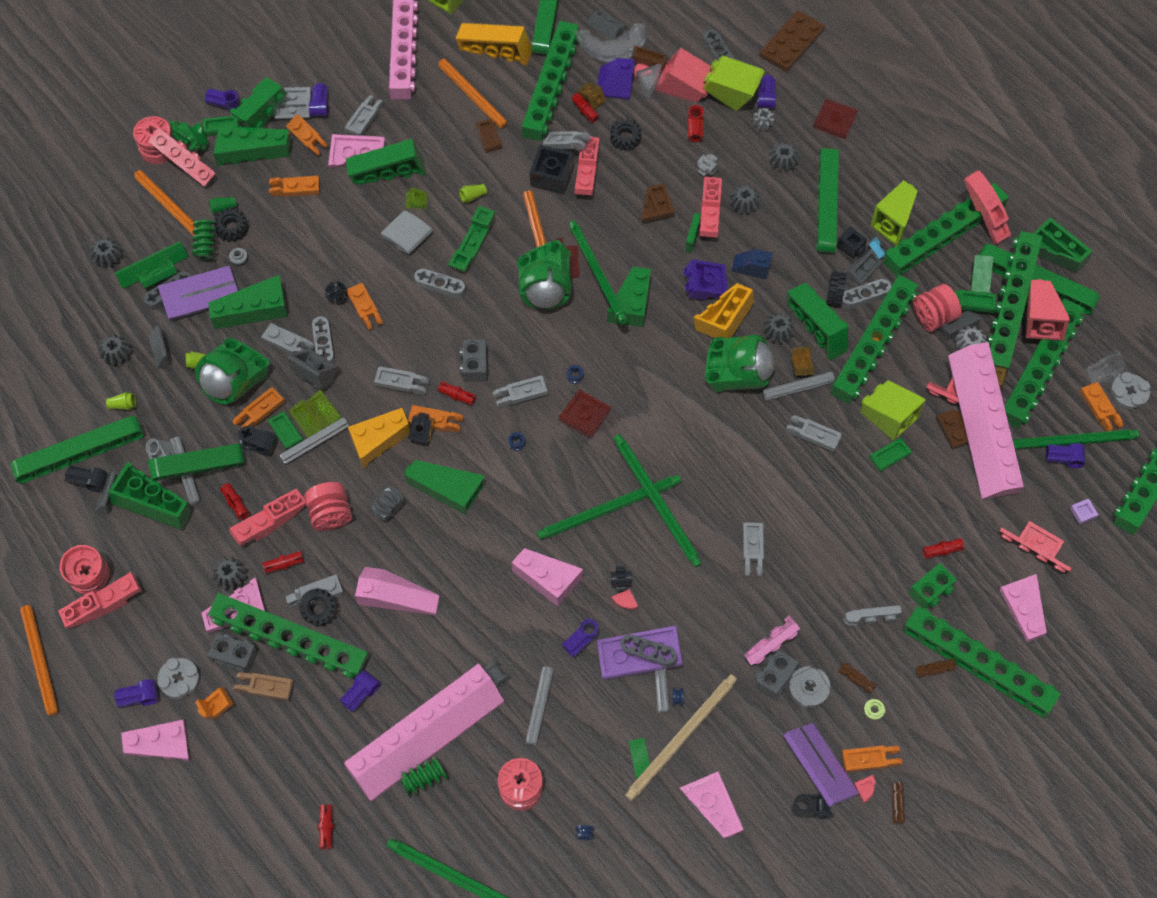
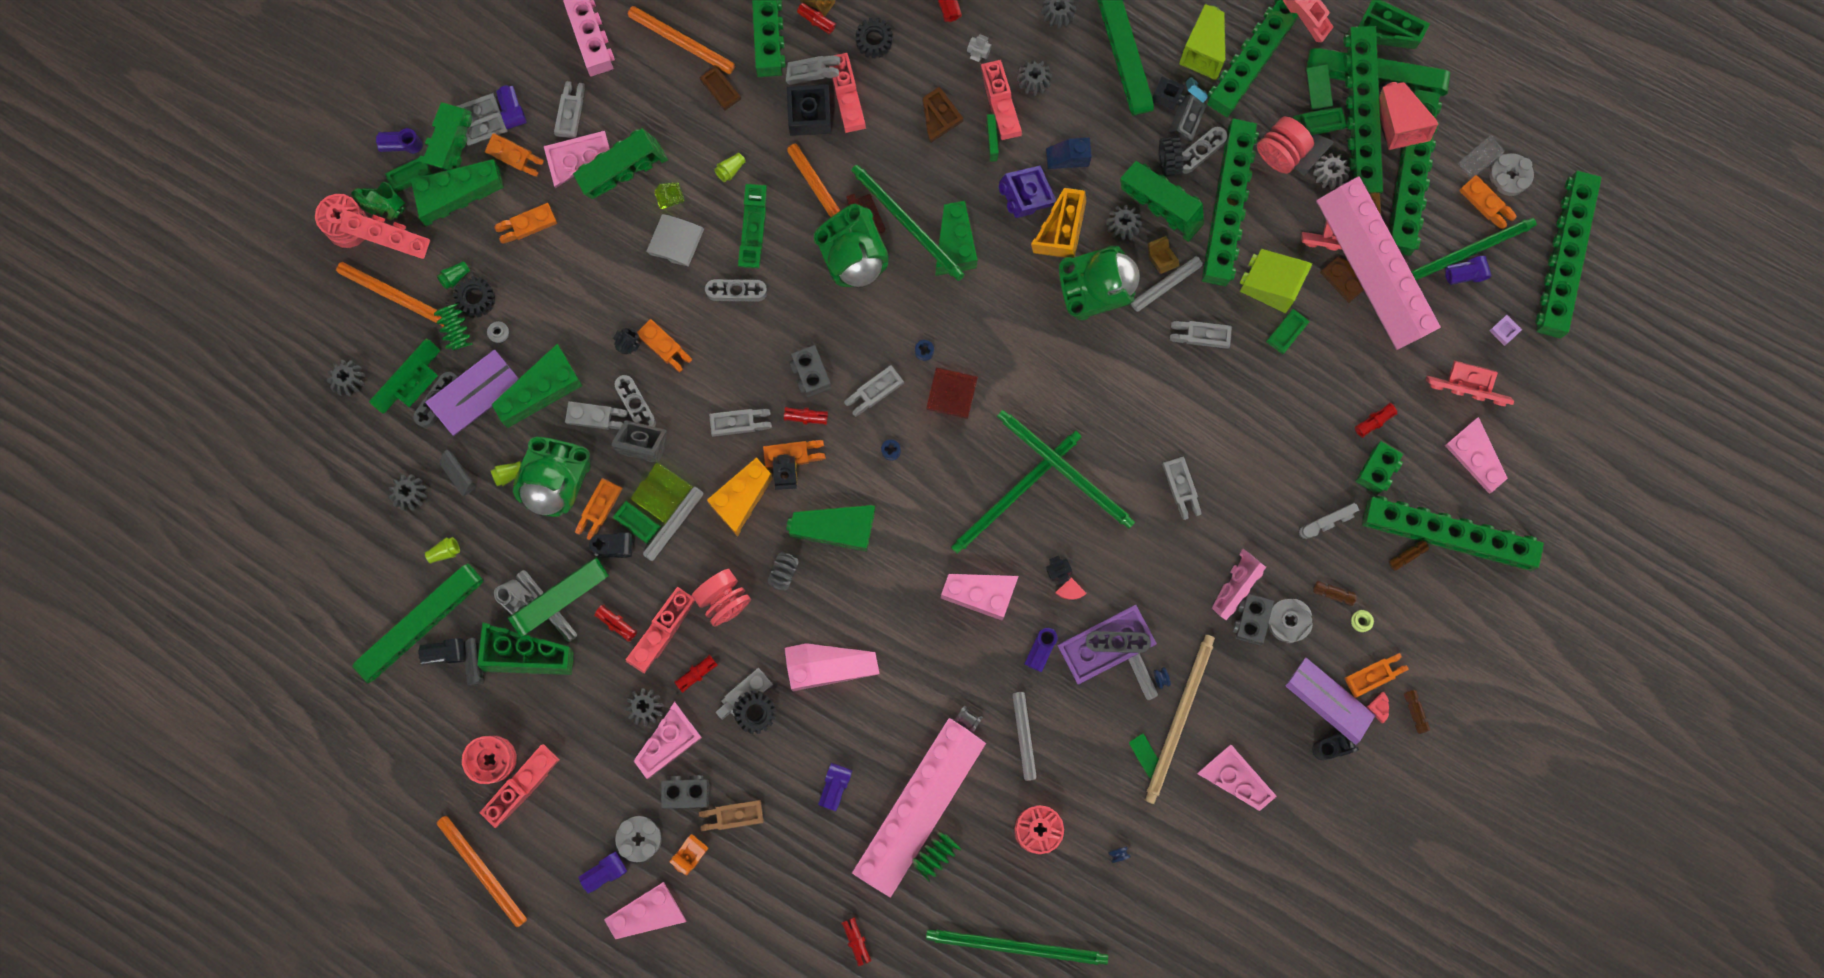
camera: 20 degrees left, 15 degrees up
(224, 605) = (656, 748): green brick -> none

